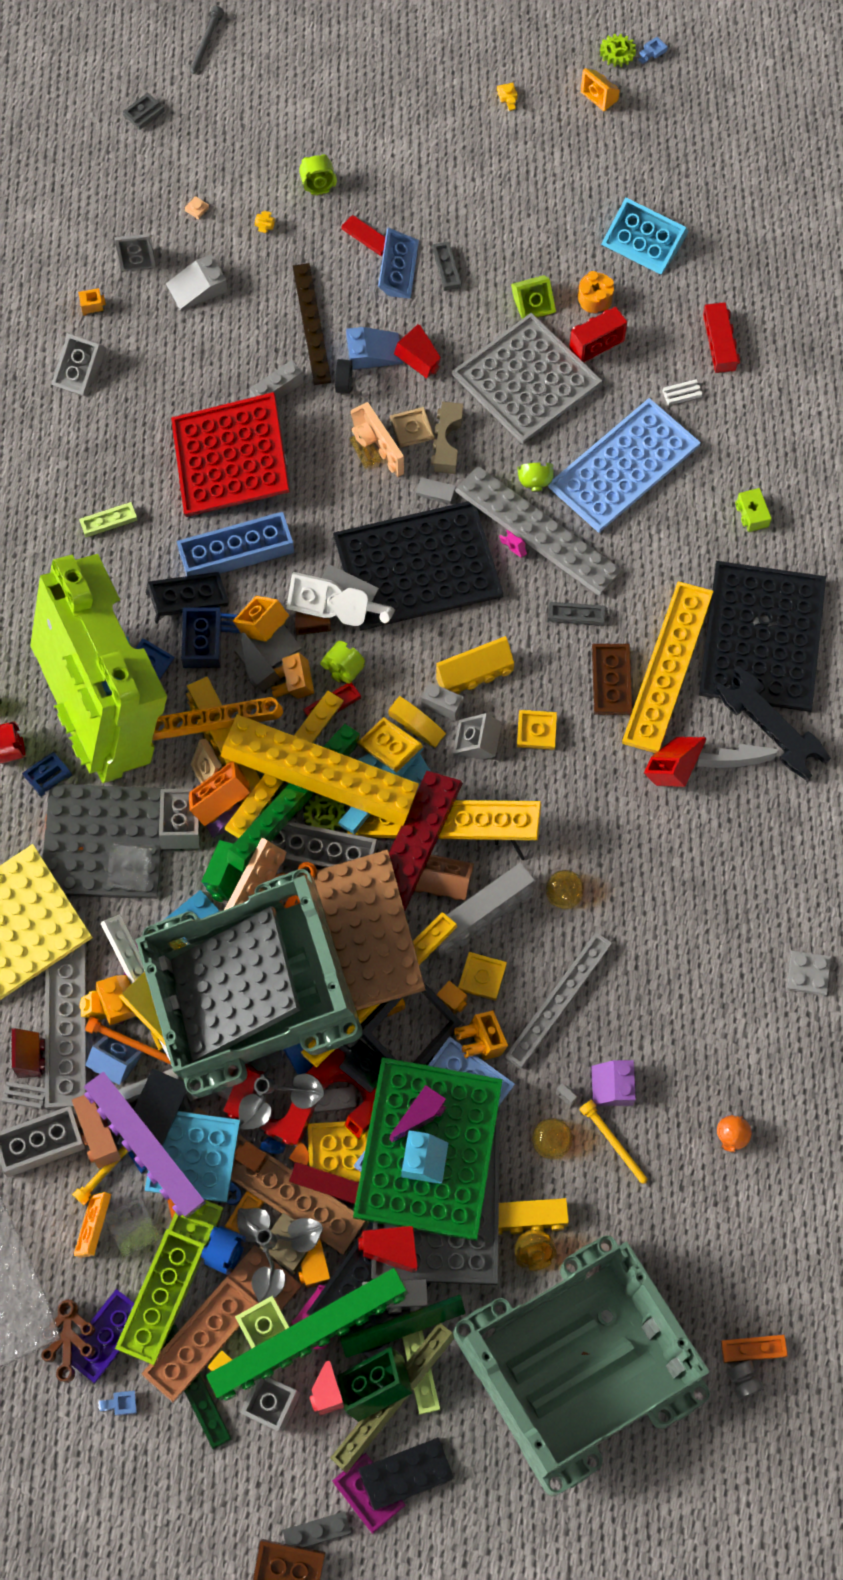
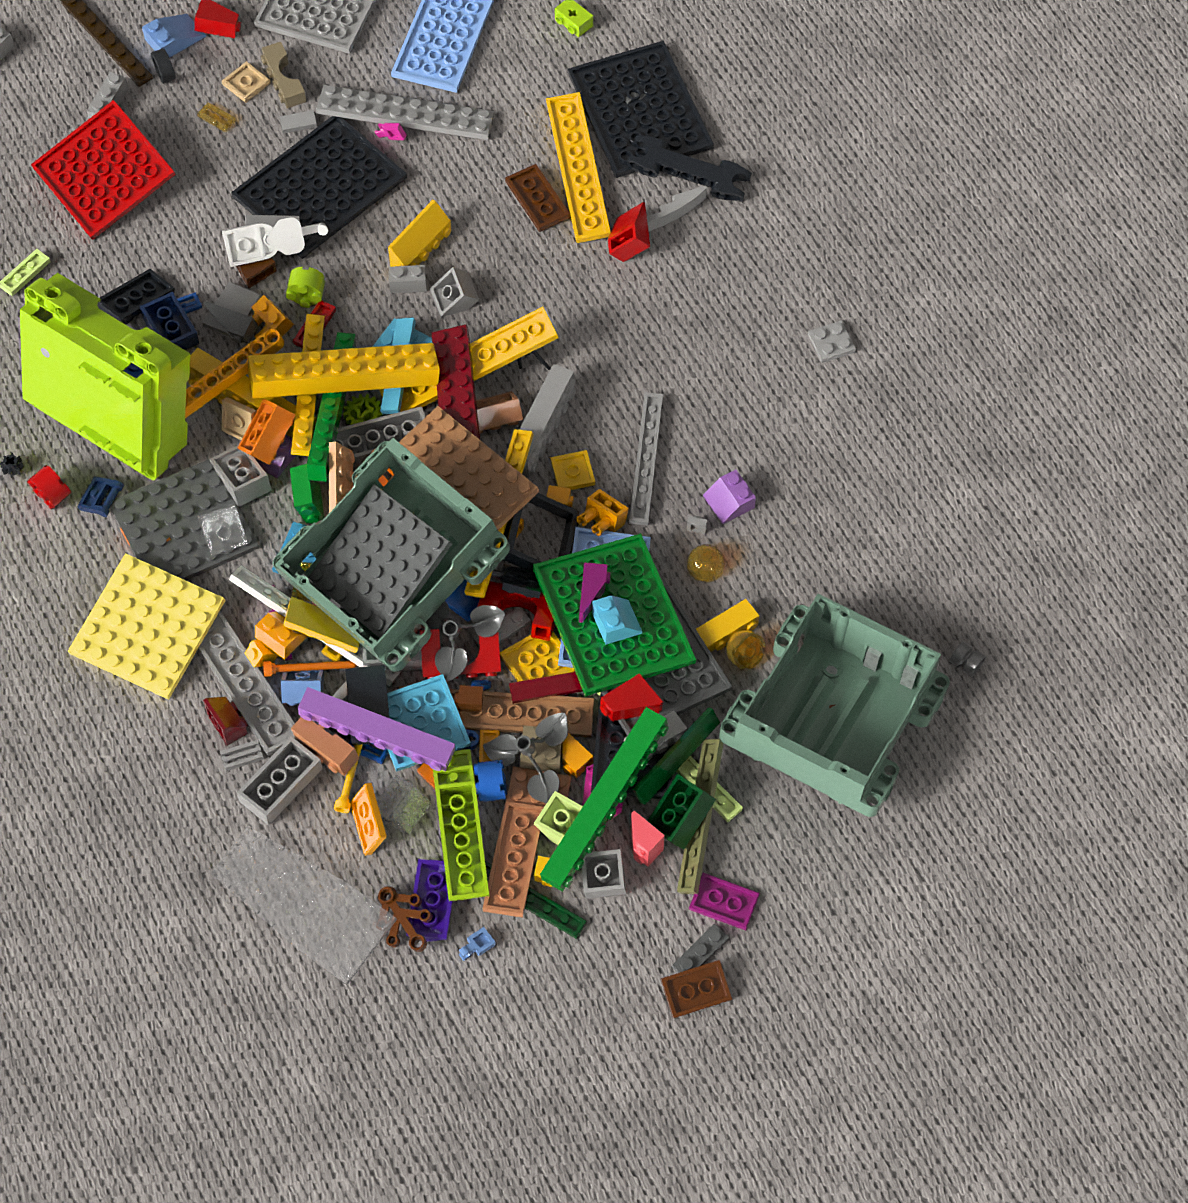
camera: 30 degrees left, 5 degrees down
(236, 546) = (154, 239): medium blue brick -> none
(261, 618) = (213, 284): light orange brick -> none
(300, 1154) = (505, 679): orange tile -> none
(372, 430) = (218, 95): light nougat plate -> none
(390, 744) = (385, 330): yellow tile -> none
(406, 1474) = (745, 869): black plate -> none
(416, 722) = (395, 305): yellow slope -> none
(535, 475) = (377, 70): lime cylinder -> none
(536, 729) = (499, 264): yellow plate -> none
(564, 889) = (598, 373): clear yellow cylinder -> none
(576, 613) = (477, 161): dark grey plate -> none
(589, 1110) = (723, 527): yellow piece -> none
(734, 1133) = (847, 484): orange cap -> none
(754, 1348) = (963, 631): orange plate -> none

